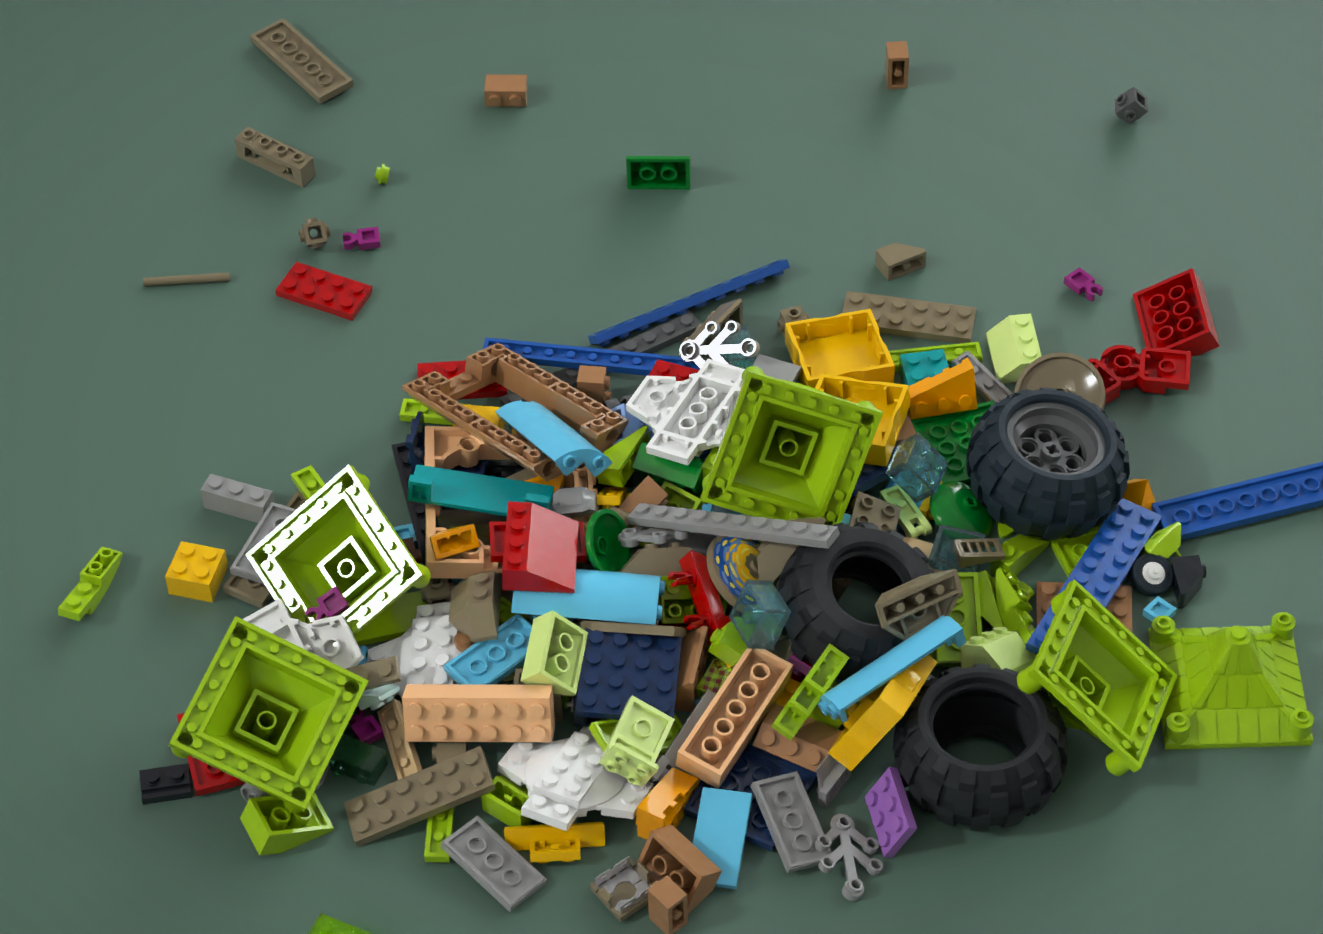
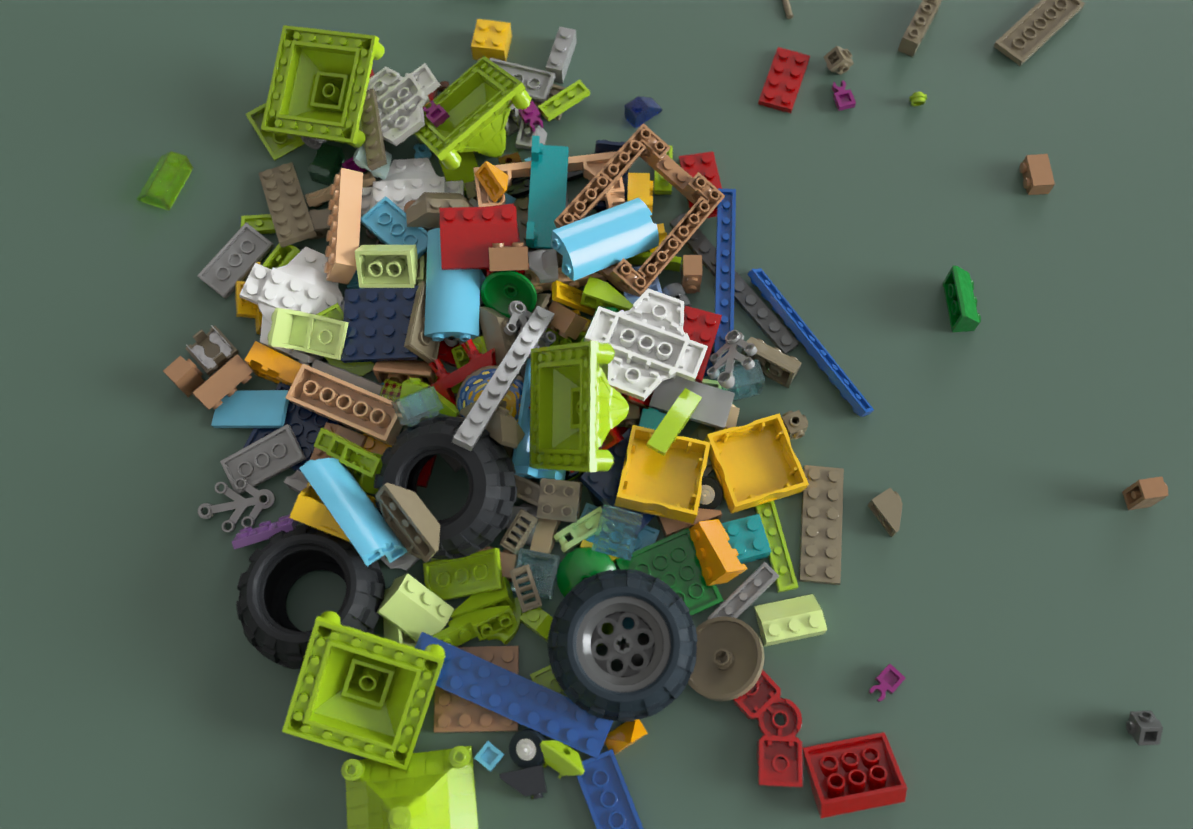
camera: 85 degrees right, 20 degrees up
(344, 427) = (641, 110): none -> clear blue slope
(574, 518) = (508, 257): none -> medium nougat brick

